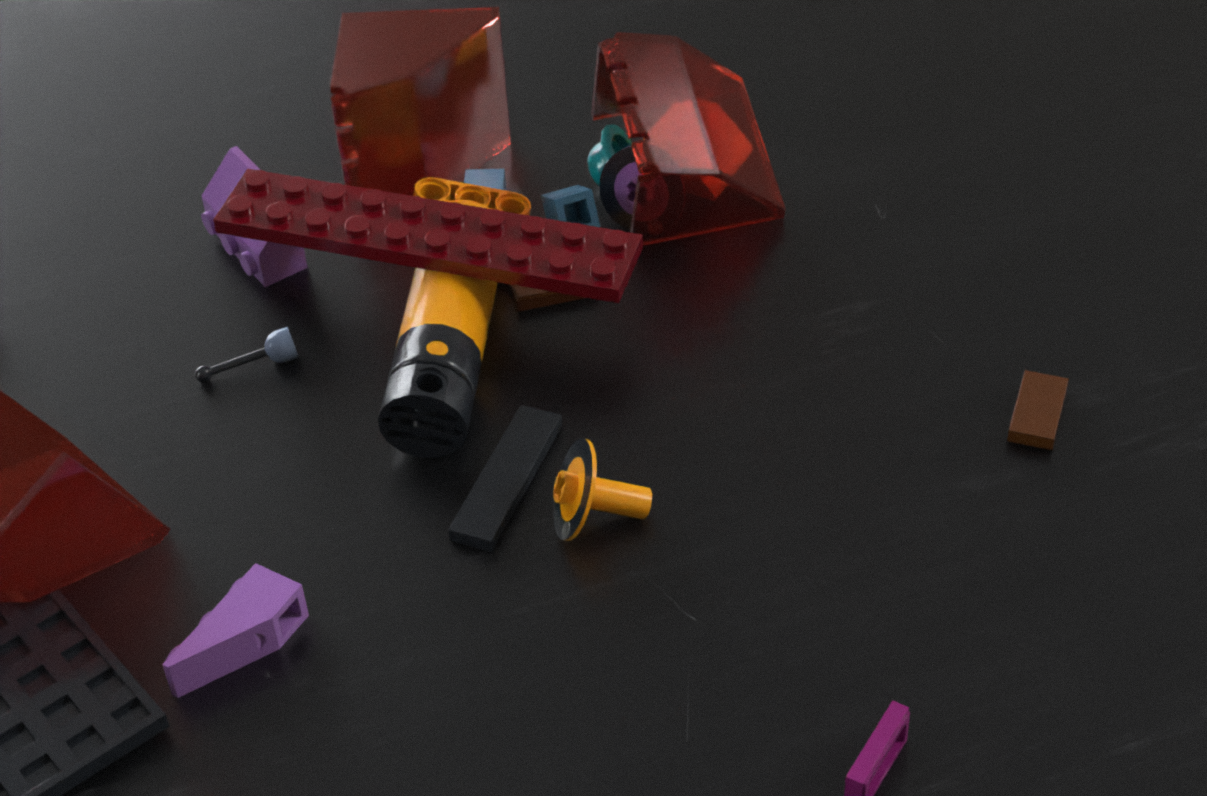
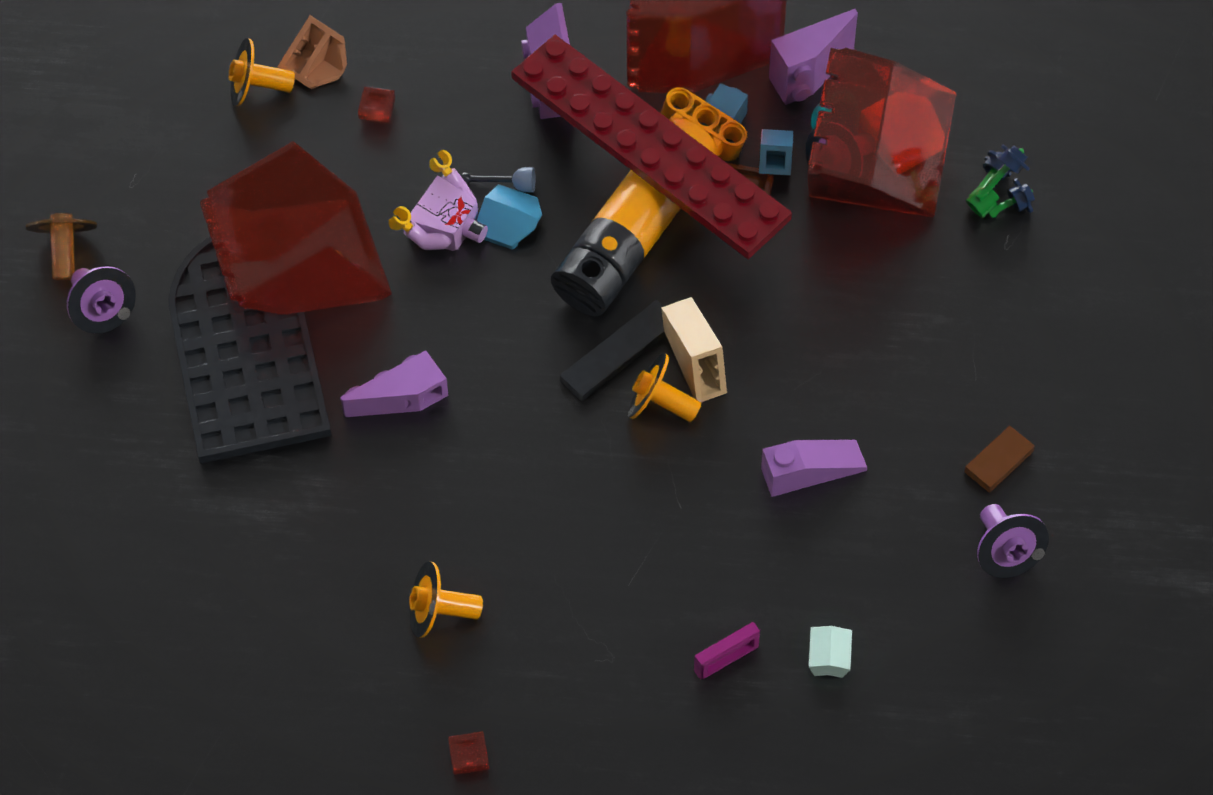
camera: 25 degrees right, 15 degrees up
(48, 338) = (376, 104): none -> clear red plate
(195, 413) = (444, 212): none -> lavender torso
(280, 394) = (509, 215): none -> dark azure slope
(549, 114) = (802, 56): none -> medium lavender slope
(614, 422) = (695, 349): none -> tan slope
(821, 502) = (809, 463): none -> medium lavender slope
(823, 145) = (998, 167): none -> plant
(1007, 699) = (830, 651): none -> light aqua piece
(1133, 479) = (1010, 542): none -> piece

